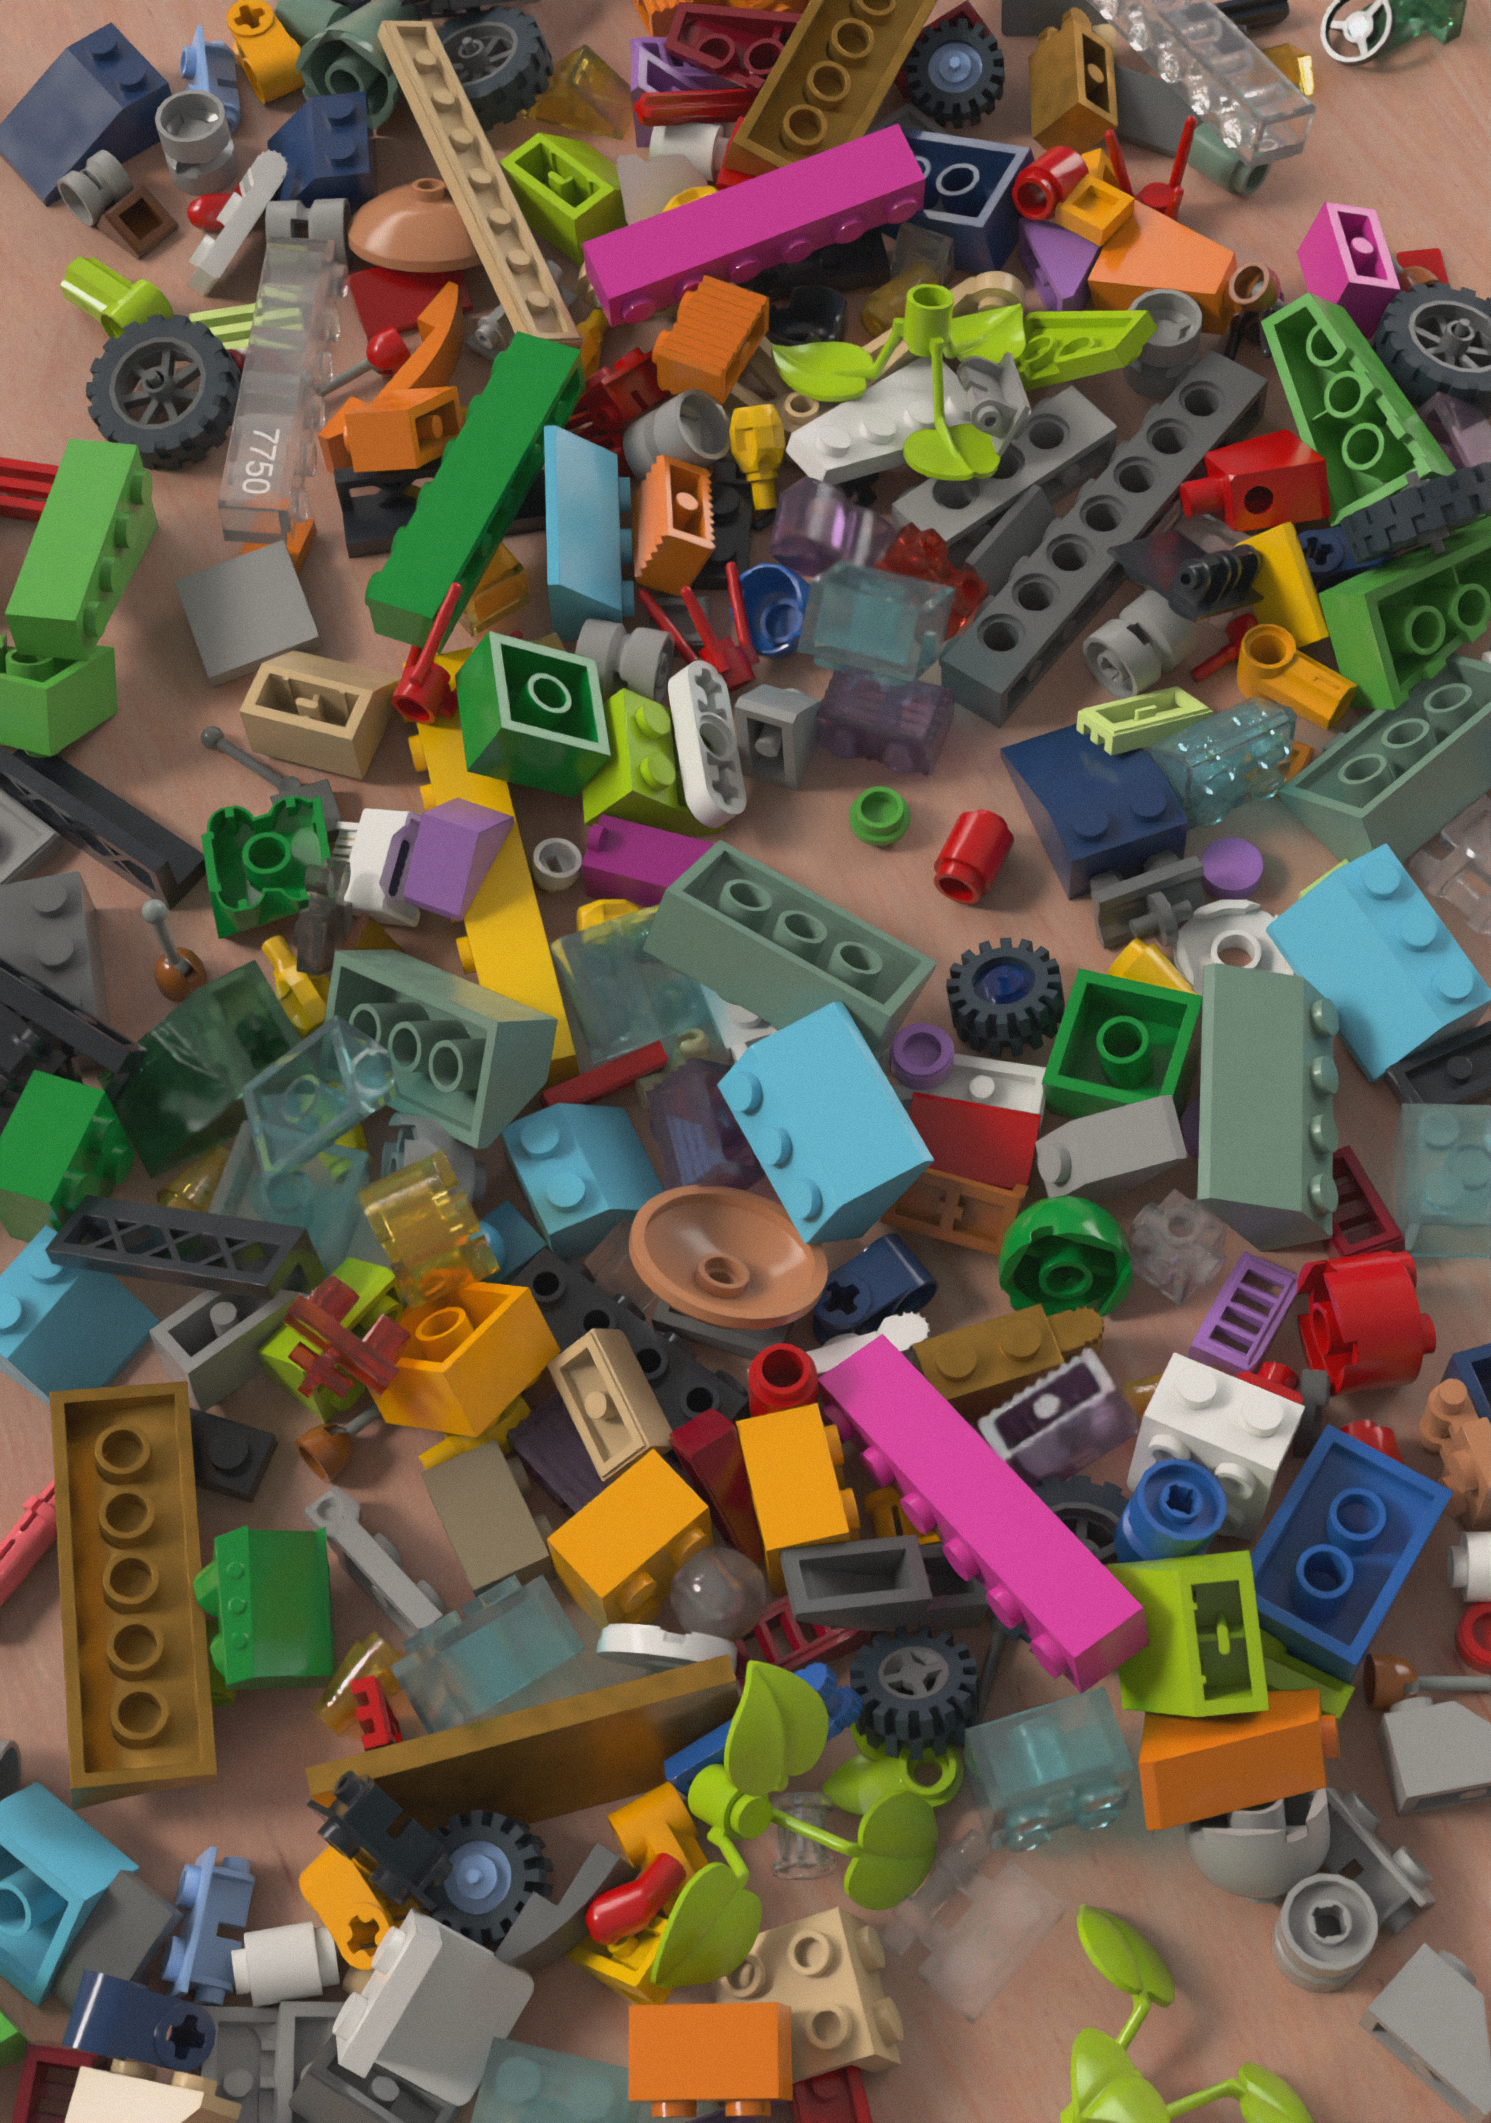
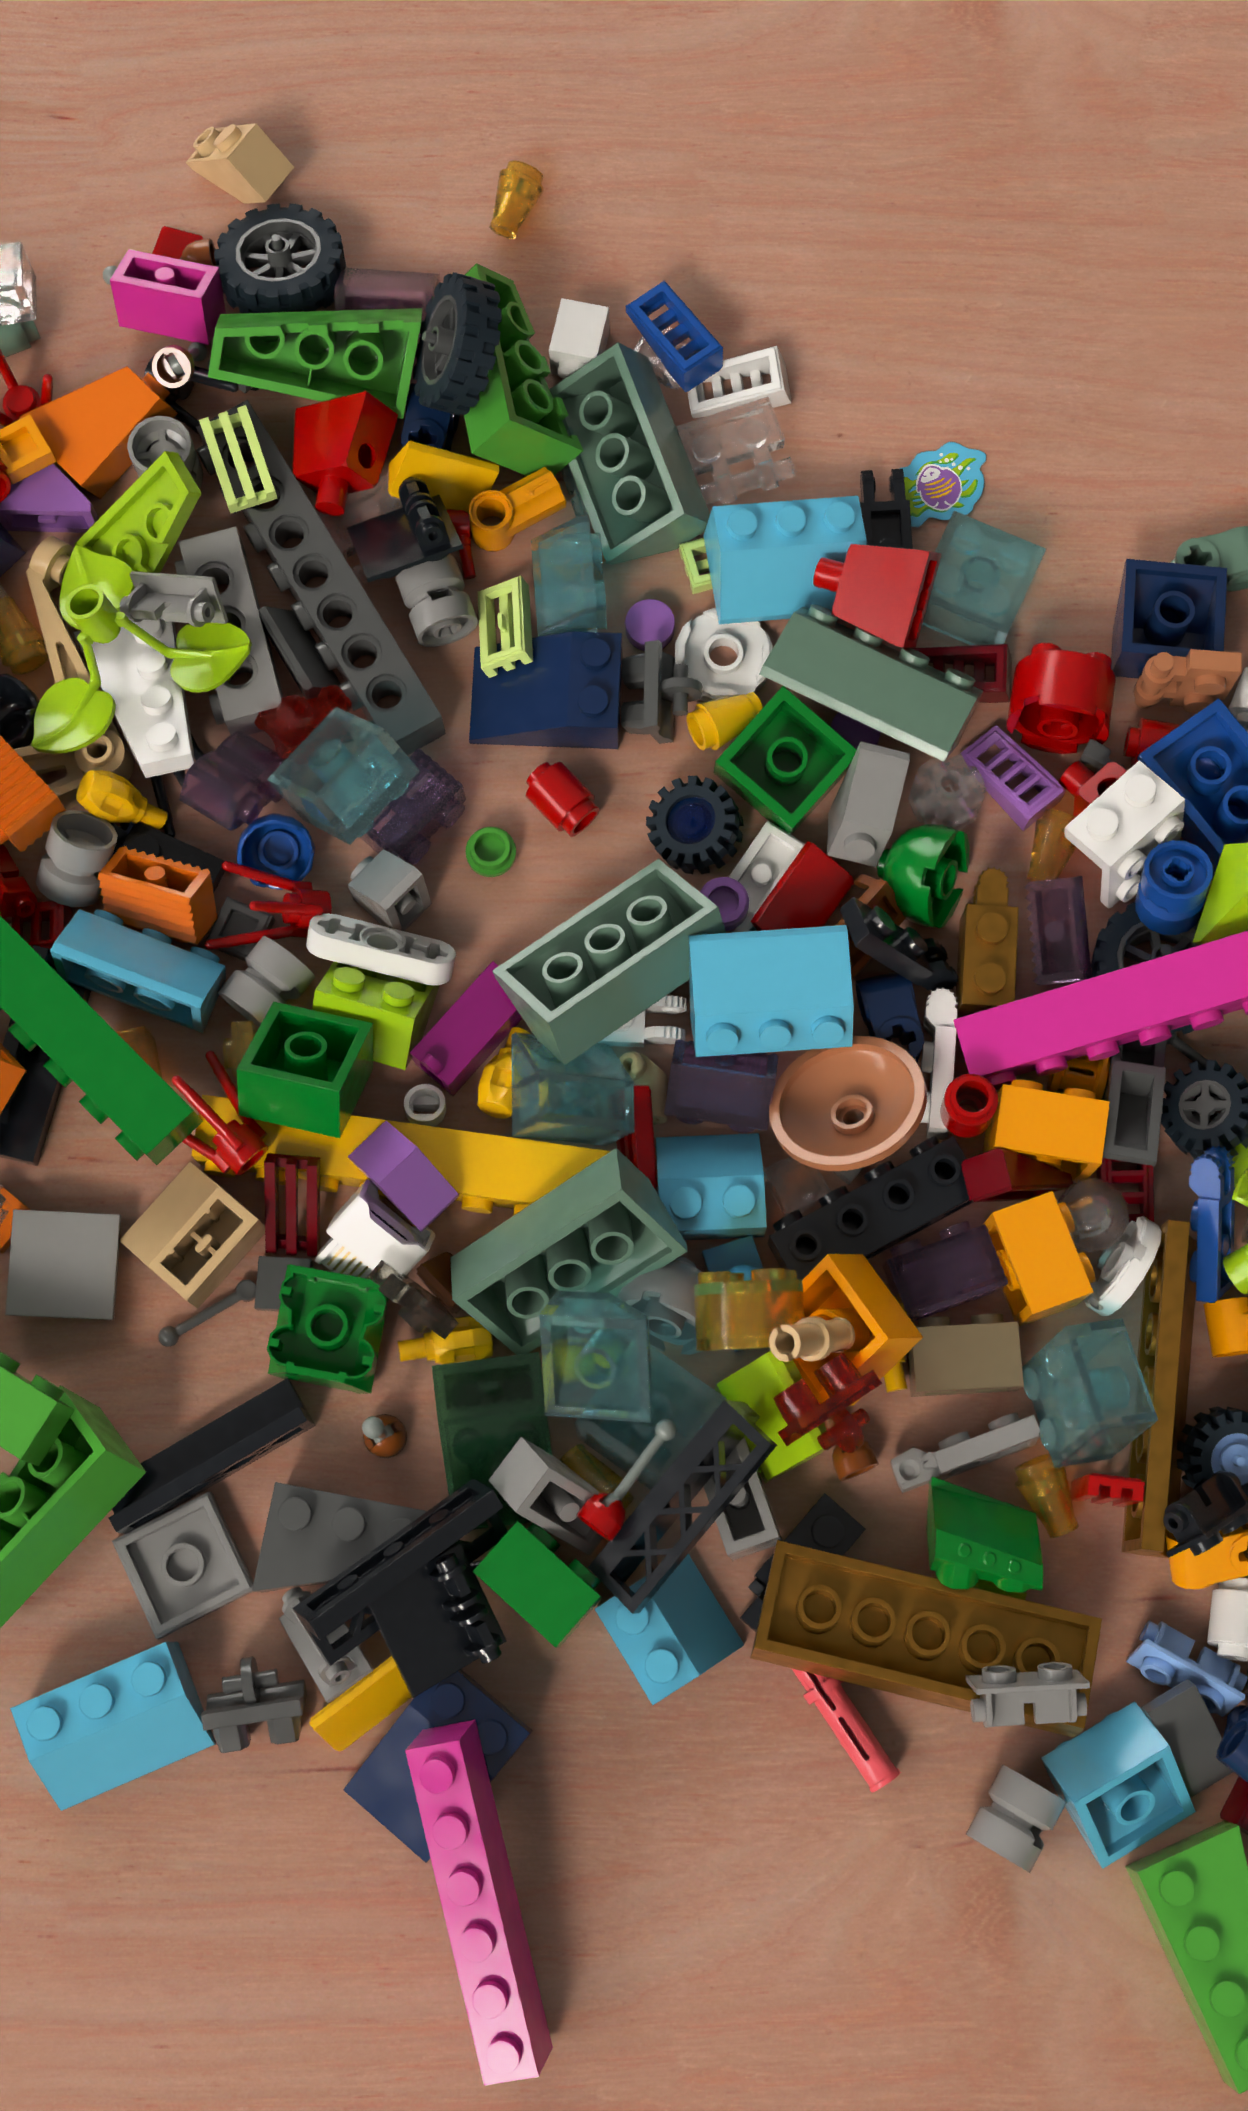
camera: 70 degrees left, 15 degrees up
(102, 1720) = (1049, 1689): none -> light grey hinge
(146, 1178) = (606, 1511): none -> hinge
(153, 1130) = (546, 1493): none -> light grey slope
(387, 769) = (291, 1240): none -> dark red tile
(406, 1285) = (811, 1339): none -> tan pin
(610, 1401) = (925, 1232): tan slope -> none
(948, 1244) = (898, 948): none -> black hinge
(1183, 387) = (226, 424): none -> yellowish green tile
(1382, 1061) = (881, 589): none -> red torso

